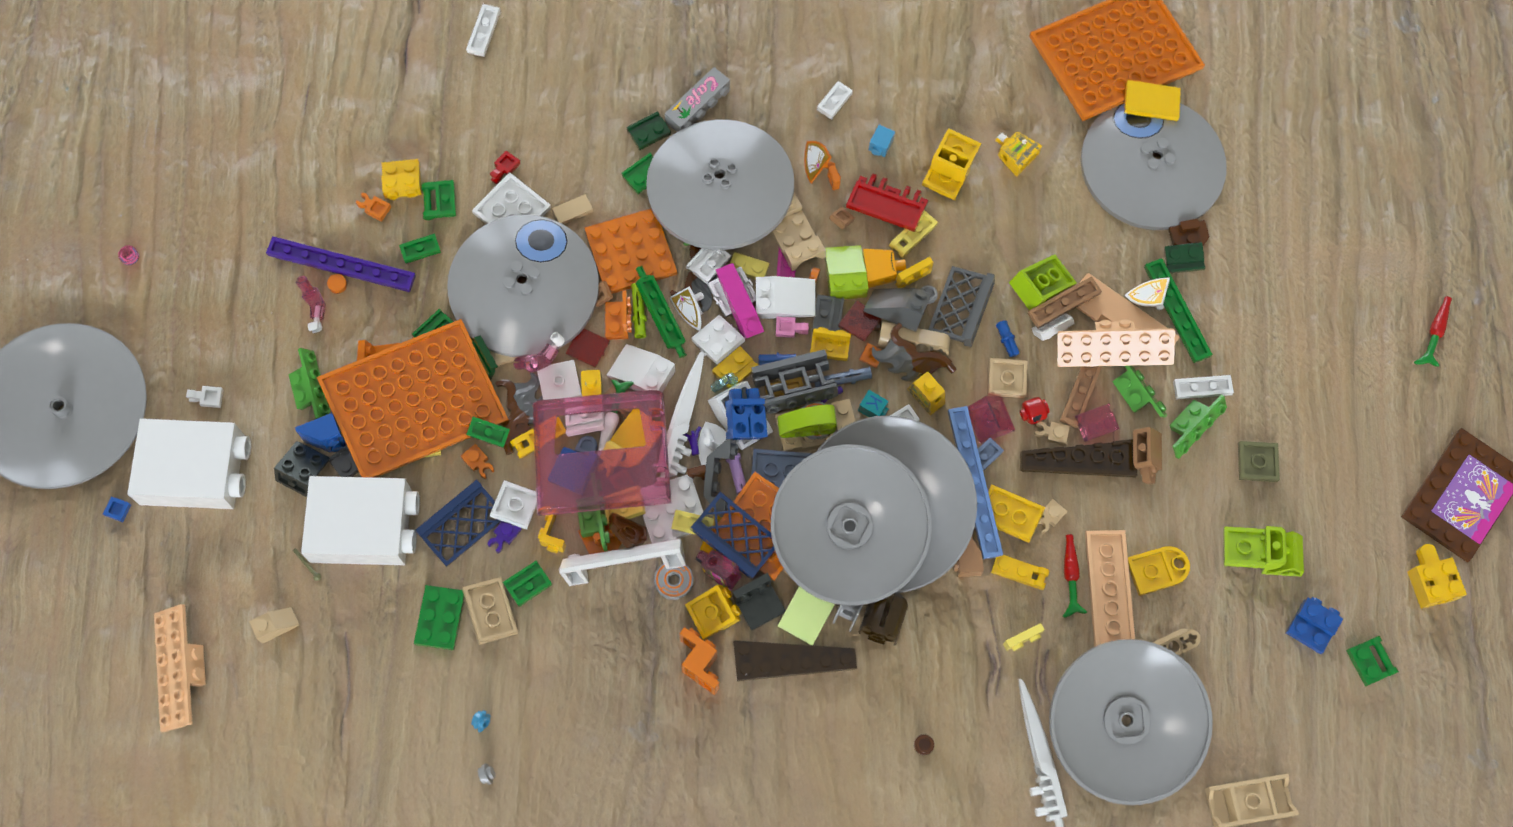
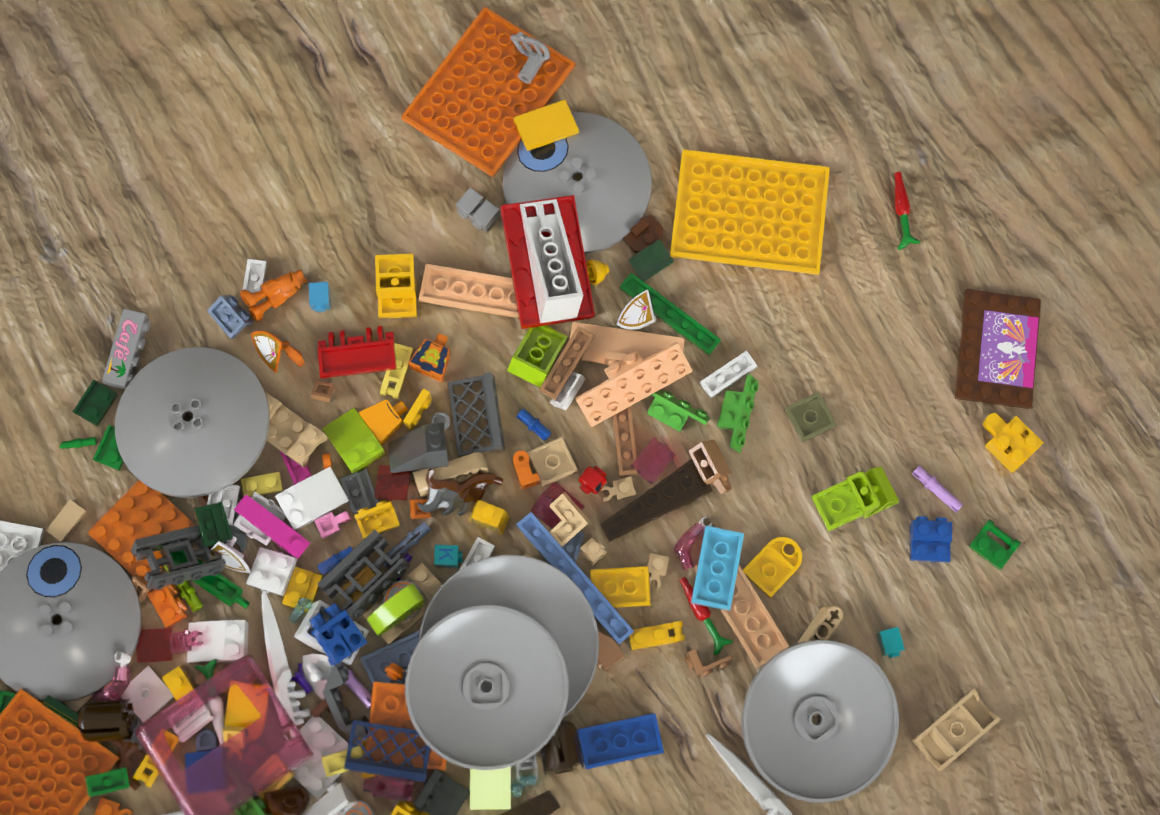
camera: 30 degrees left, 5 degrees up
(515, 381) = (106, 720): none -> dark brown cylinder
(613, 354) = (183, 641): none -> clear pink plate
(617, 154) = (78, 443): none -> green piece
(653, 269) = (174, 542): none -> dark grey fence
(691, 271) = (212, 524): none -> dark green plate
(776, 474) = (394, 672): none -> orange plate
(797, 118) = (229, 315): none -> sand blue bracket
(831, 629) = (517, 786): none -> clear light blue arm
(848, 118) = (275, 290): none -> orange piece
(940, 642) = (620, 741): none -> blue plate
(949, 239) = (432, 358): none -> torso
(977, 374) = (521, 464): none -> orange leg
(1000, 428) = (572, 519): none -> tan plate
(1002, 469) = (593, 550): none -> tan brick
(1017, 151) = (449, 239): yellow torso -> none
(1017, 641) = (696, 688): light yellow plate -> none
(1019, 206) = (468, 290): none -> light nougat plate
(1042, 612) = (694, 662): none -> medium nougat bracket
(1055, 145) = (479, 212): none -> light grey piece
(1090, 506) = (686, 541): none -> clear pink arm
(1093, 210) = (547, 261): none -> piece
(1106, 541) = (717, 568): none -> medium azure plate
(1130, 241) = (596, 271): none -> yellow brick
(1171, 43) = (535, 58): none -> light grey piece
(1230, 692) = (890, 642): none -> teal brick
(1295, 263) = (750, 212): none -> yellow plate
(1343, 582) = (940, 491): none -> lavender pin

